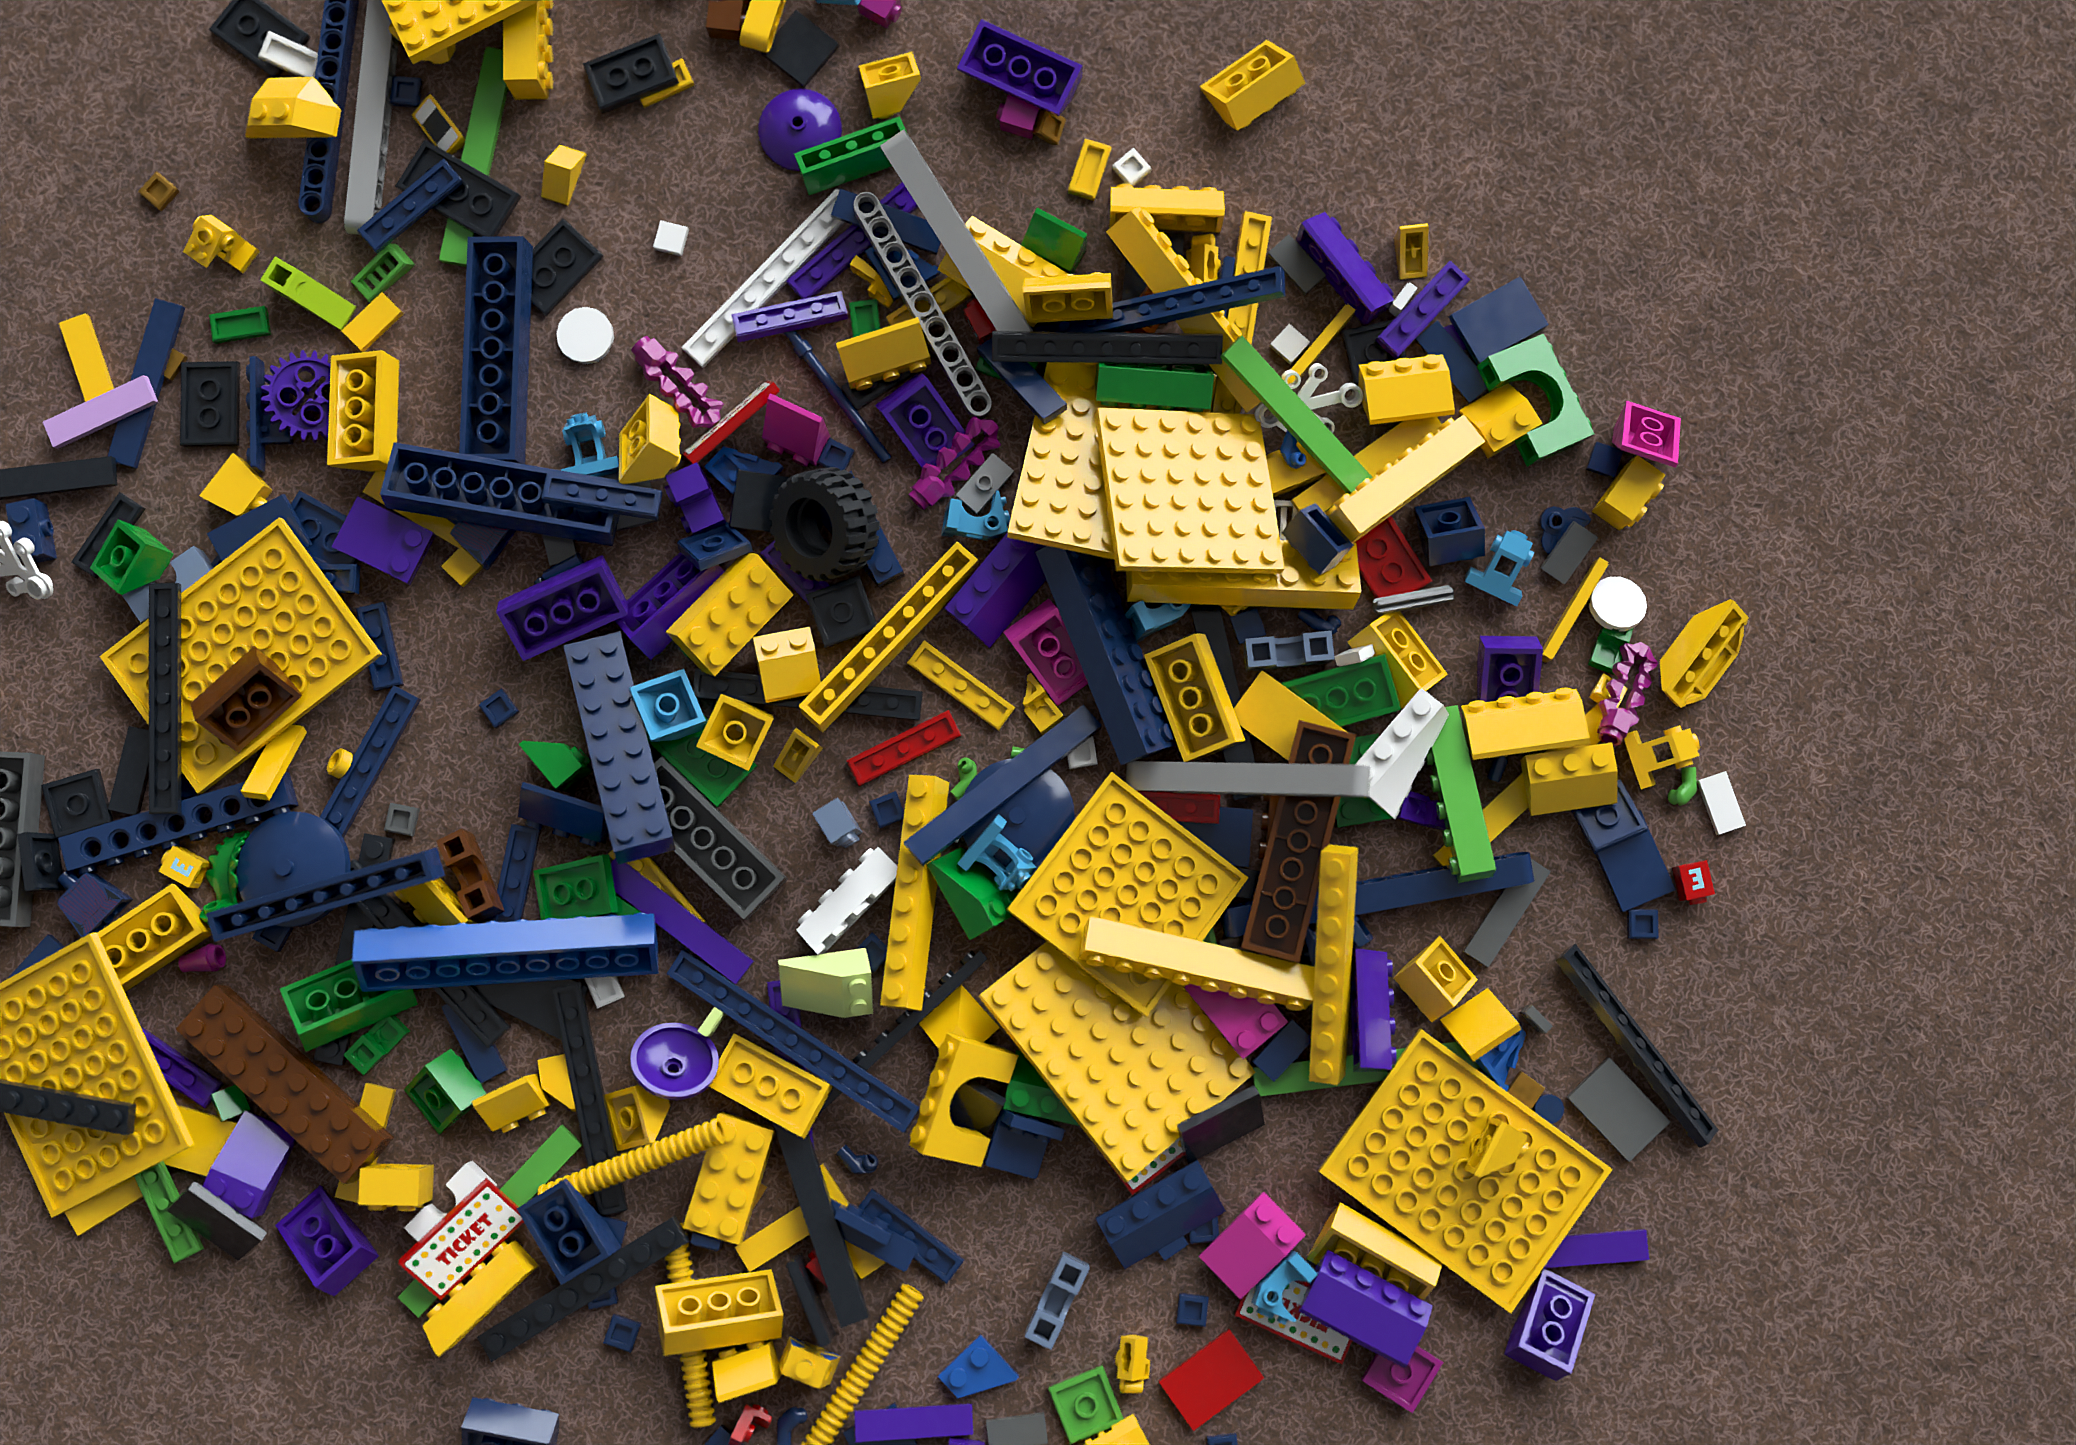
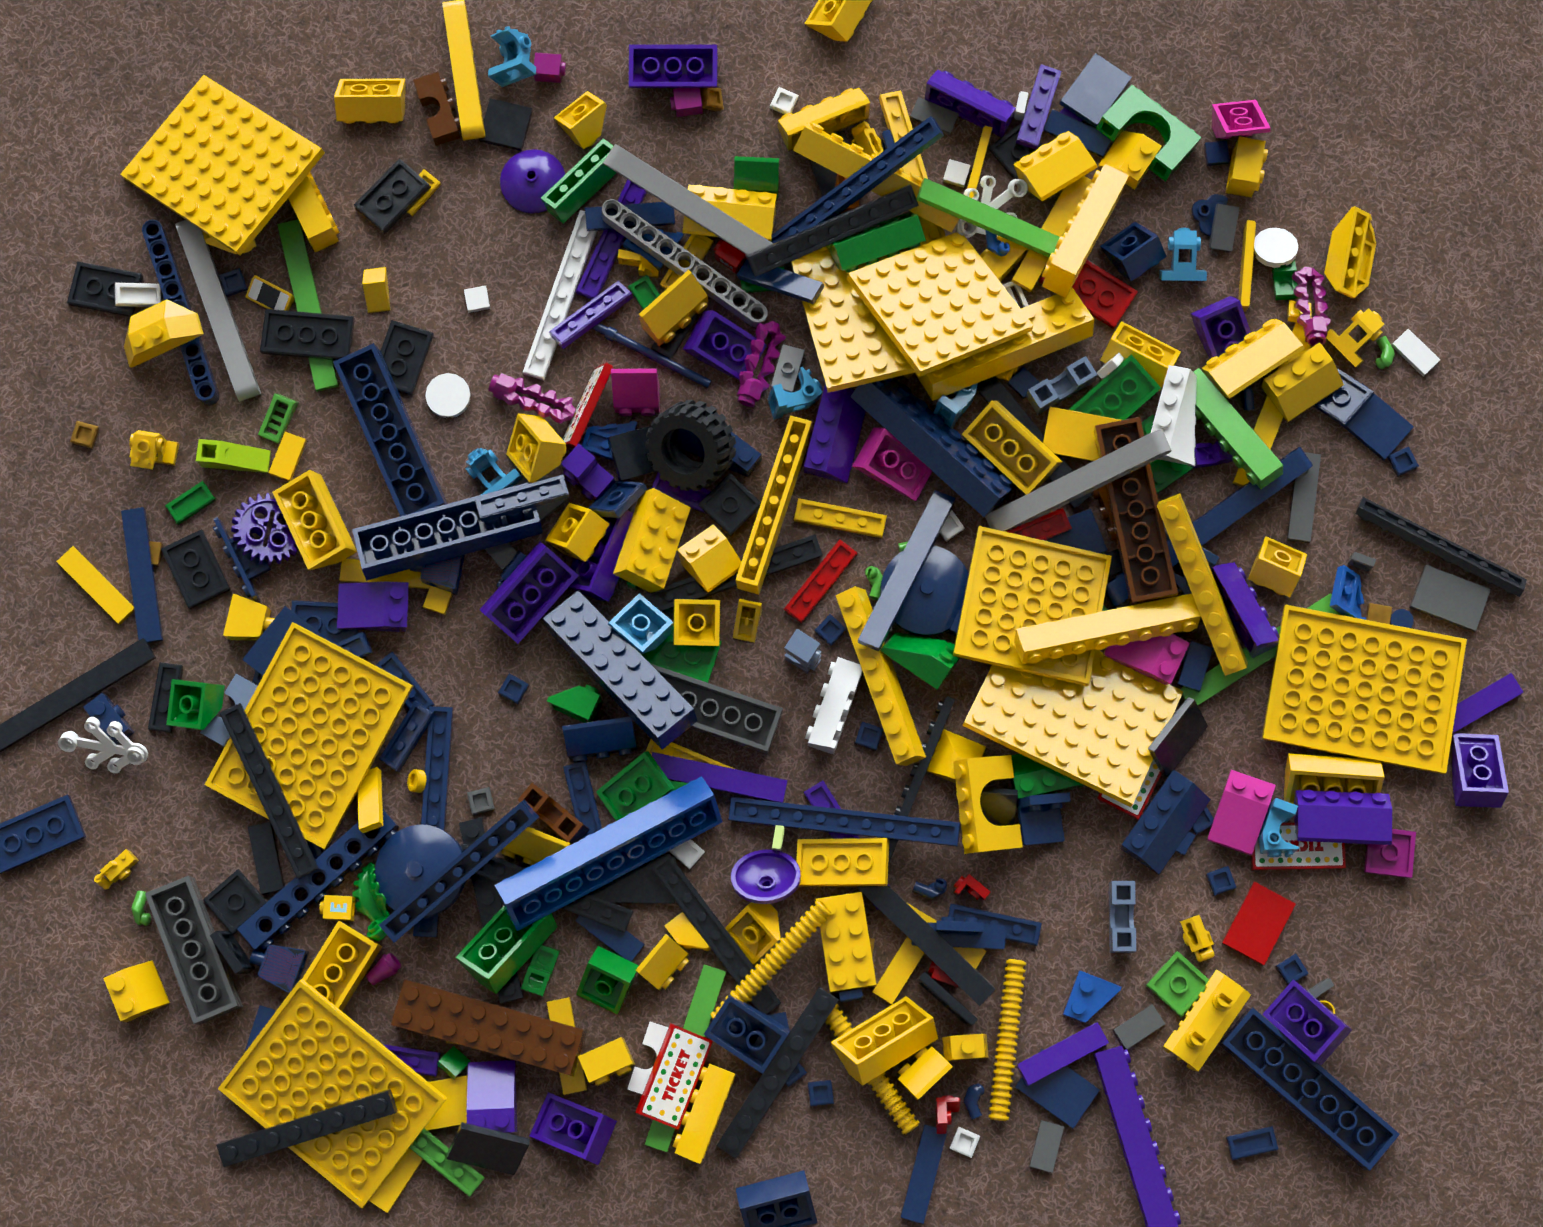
camera: 25 degrees left, 5 degrees down
(100, 412) = (119, 610): lavender tile -> none
(245, 700) = (330, 762): reddish brown slope -> none
(352, 707) = (407, 736): none -> dark blue tile
(410, 206) = (279, 360): dark blue tile -> none
(651, 564) = (577, 532): none -> yellow brick
(828, 983) = (850, 768): yellowish green slope -> none
(835, 455) = (670, 396): dark blue tile -> none
(907, 1187) = (975, 889): none -> red bracket
(1012, 876) = (946, 627): dark azure tile -> none
(1040, 707) = (904, 507): yellow slope -> none
(1068, 297) = (789, 207): yellow slope -> none
(1089, 169) = (754, 116): yellow tile -> none
(1317, 538) = (1045, 294): dark blue brick -> none
(1317, 622) = (1071, 357): dark blue arm -> none
(1412, 251) = (1011, 69): yellow slope -> none
(1413, 600) = (1131, 310): axle -> none
(1480, 1024) = (1325, 582): yellow tile -> none
(1496, 1148) = (1379, 657): yellow slope -> none
(1693, 882) = (1423, 415): red brick -> none

